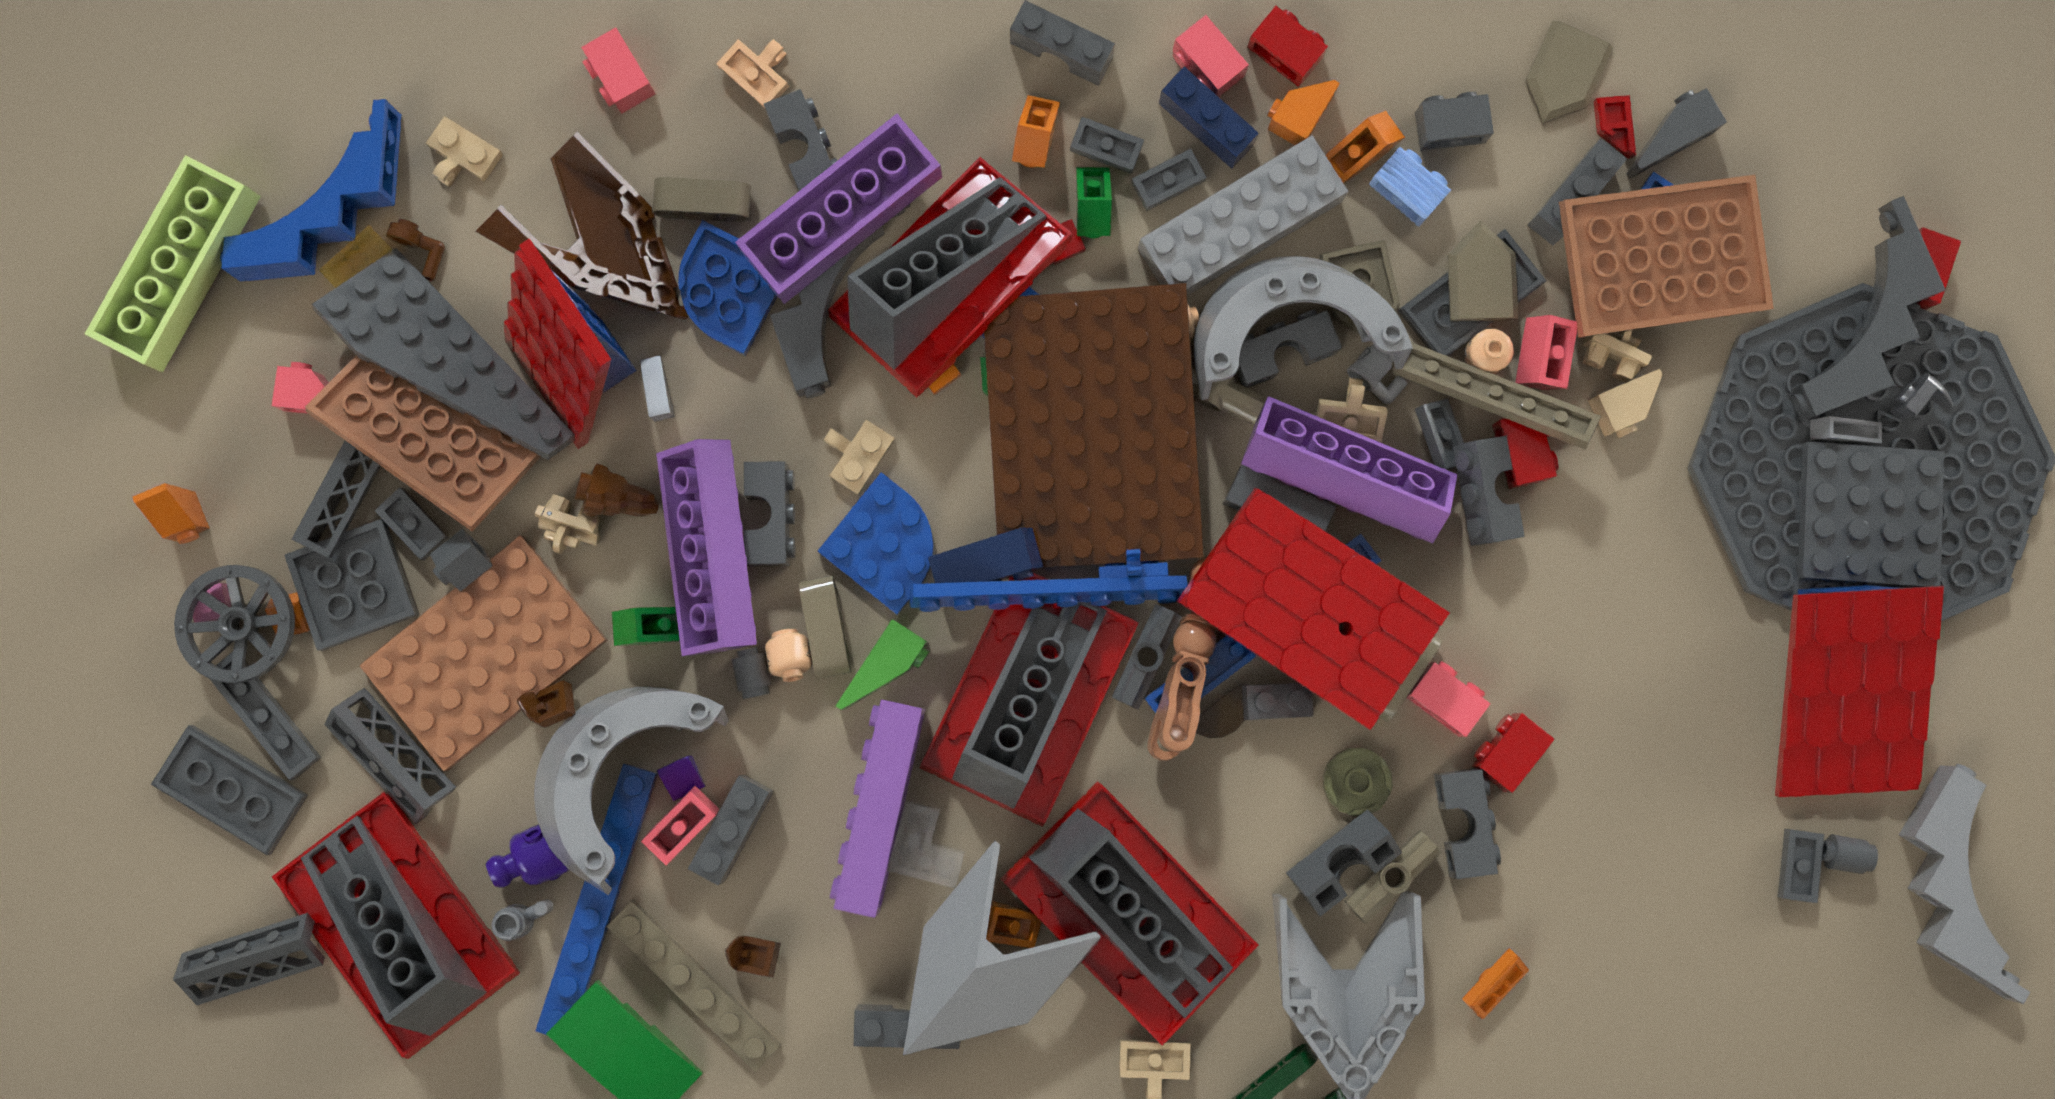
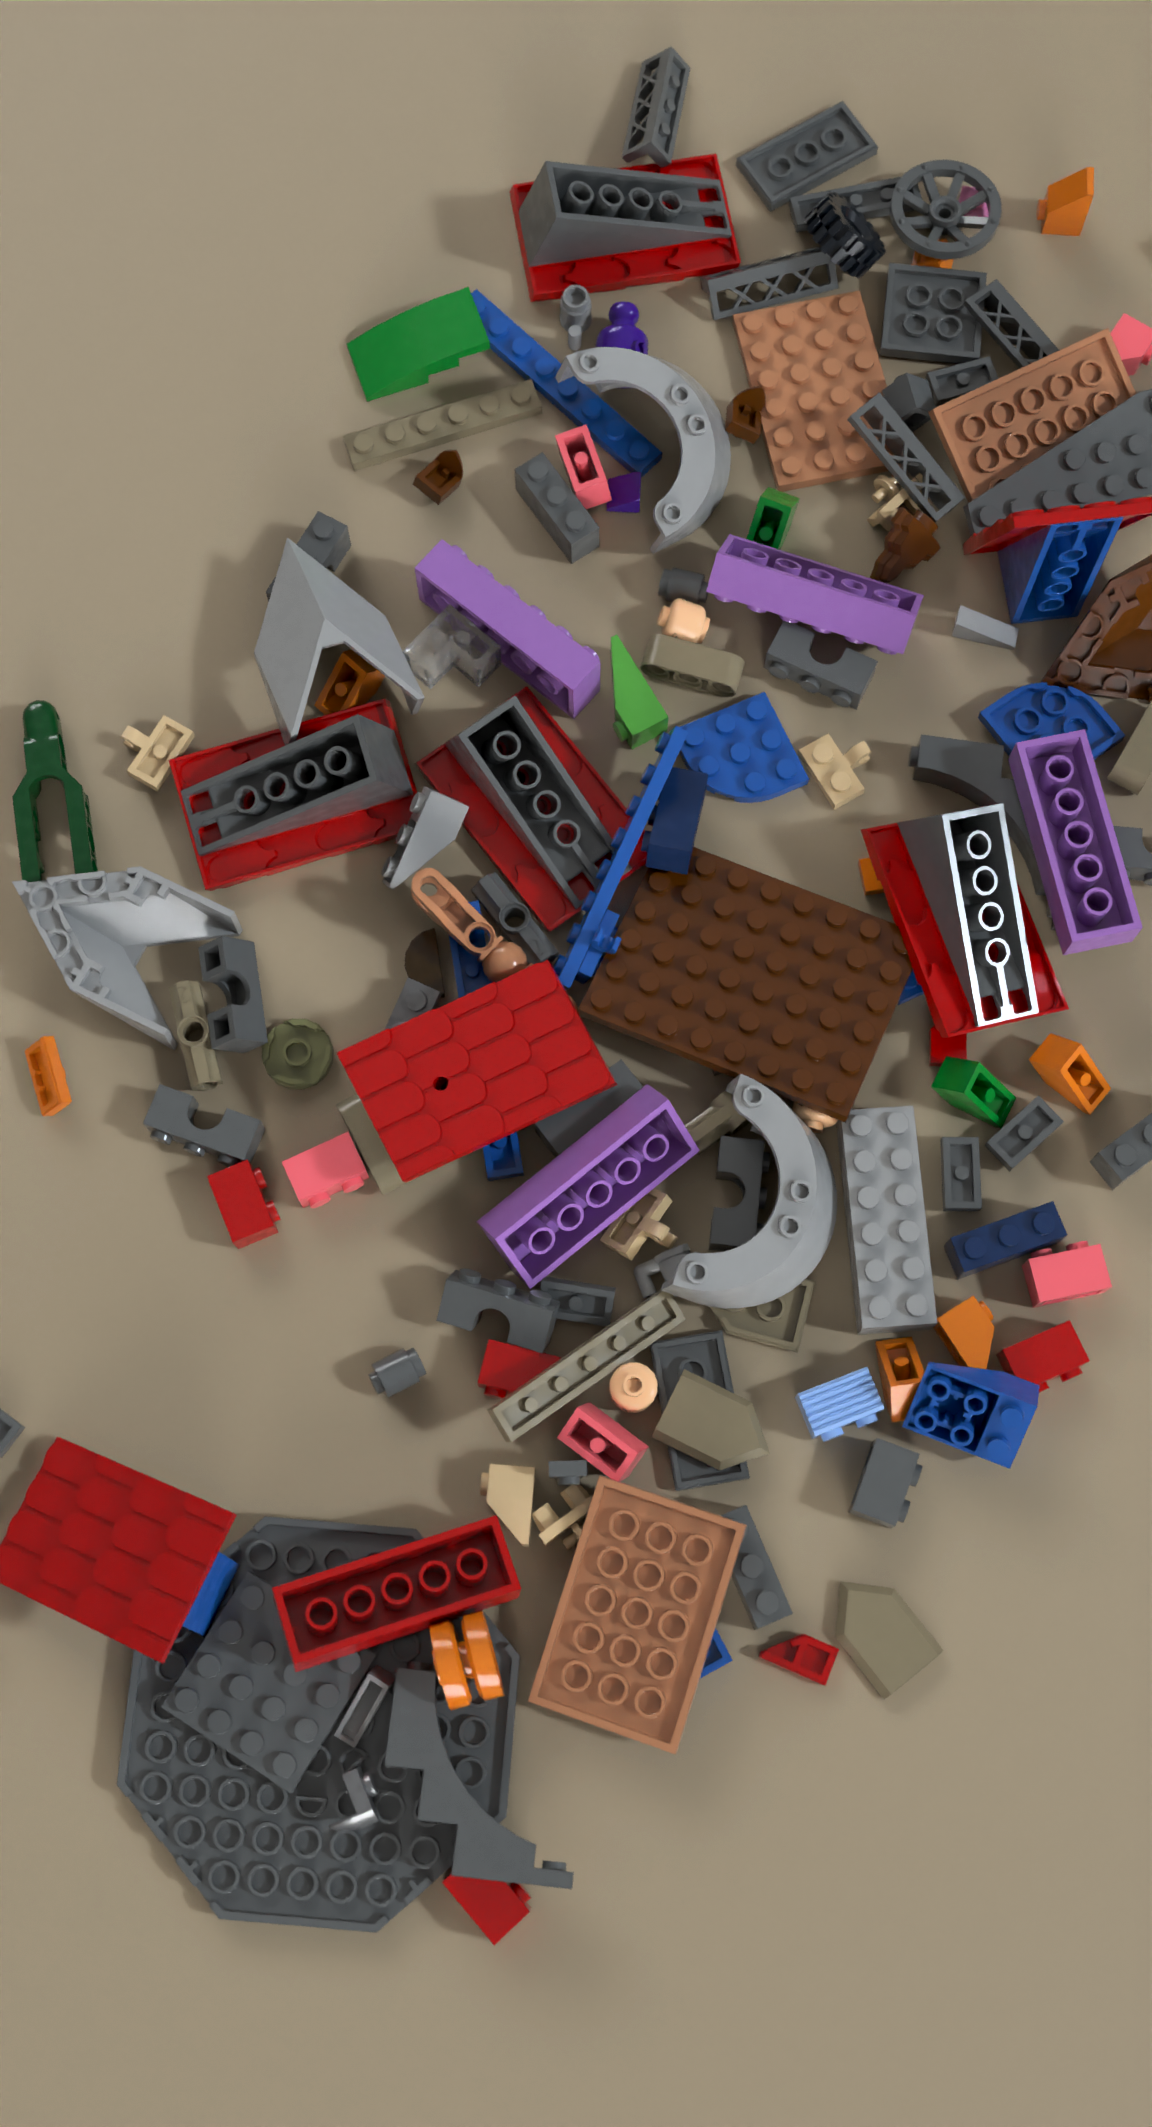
camera: 120 degrees right, 10 degrees down
(313, 702) = (844, 234): none -> black bush
(522, 526) = (909, 454): none -> dark grey fence
(1108, 773) = (429, 830): none -> light grey slope
(1366, 70) = (973, 1410): none -> blue slope
(1577, 549) = (397, 1372): none -> dark grey brick
(1587, 367) = (568, 1471): none -> dark grey plate
(1684, 125) = (764, 1721): dark grey slope -> none
(1764, 446) = (395, 1593): none -> red brick
(1782, 364) = (463, 1660): none -> orange wheel

